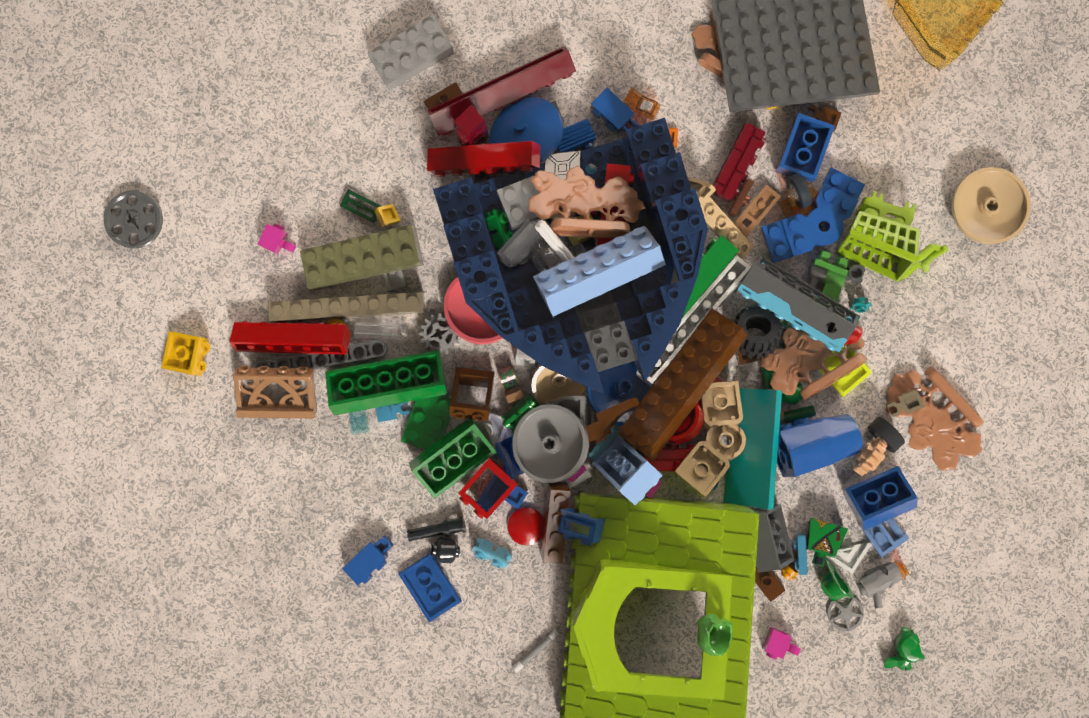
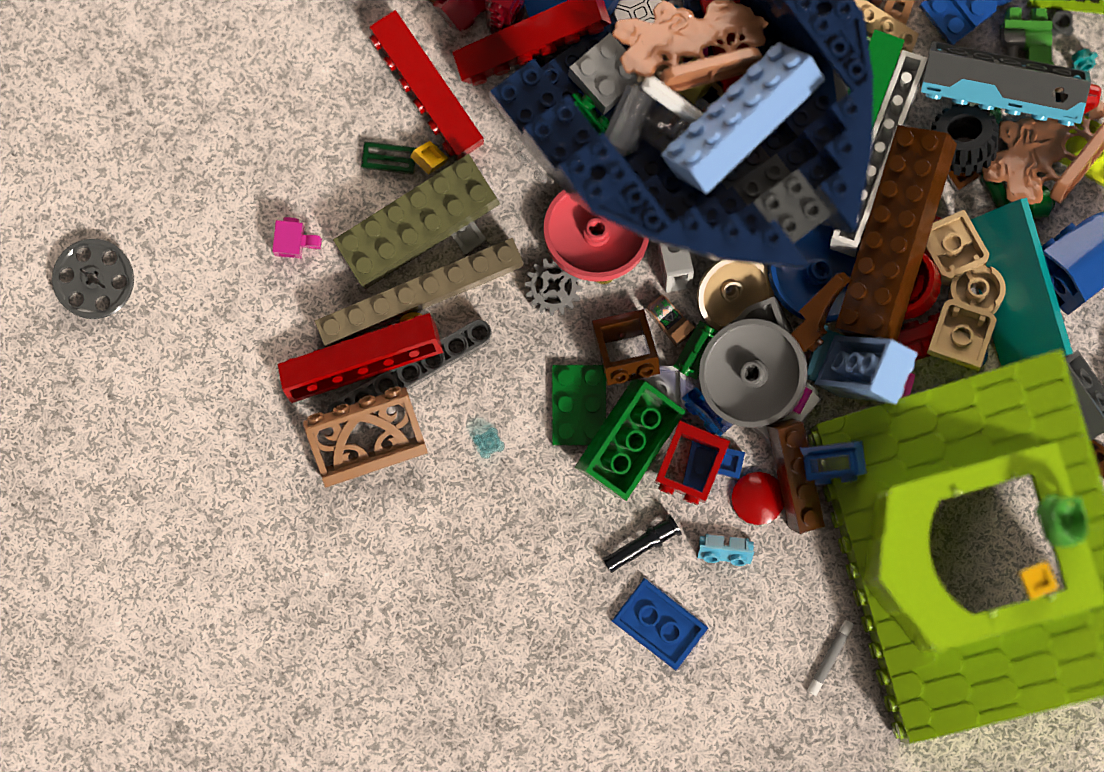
camera: 30 degrees left, 5 degrees down
(185, 353) = (225, 429): yellow plate -> none
(368, 560) = (566, 617): blue brick -> none
(380, 329) = (476, 304): clear brick -> none
(386, 382) = (508, 372): green brick -> none
(390, 412) = (520, 411): dark azure plate -> none
(403, 165) = (426, 85): none -> red brick
(445, 550) = (663, 567): black head -> none
(681, 668) = (1037, 580): none -> yellow plate
(800, 413) = (1055, 227): dark green hinge -> none

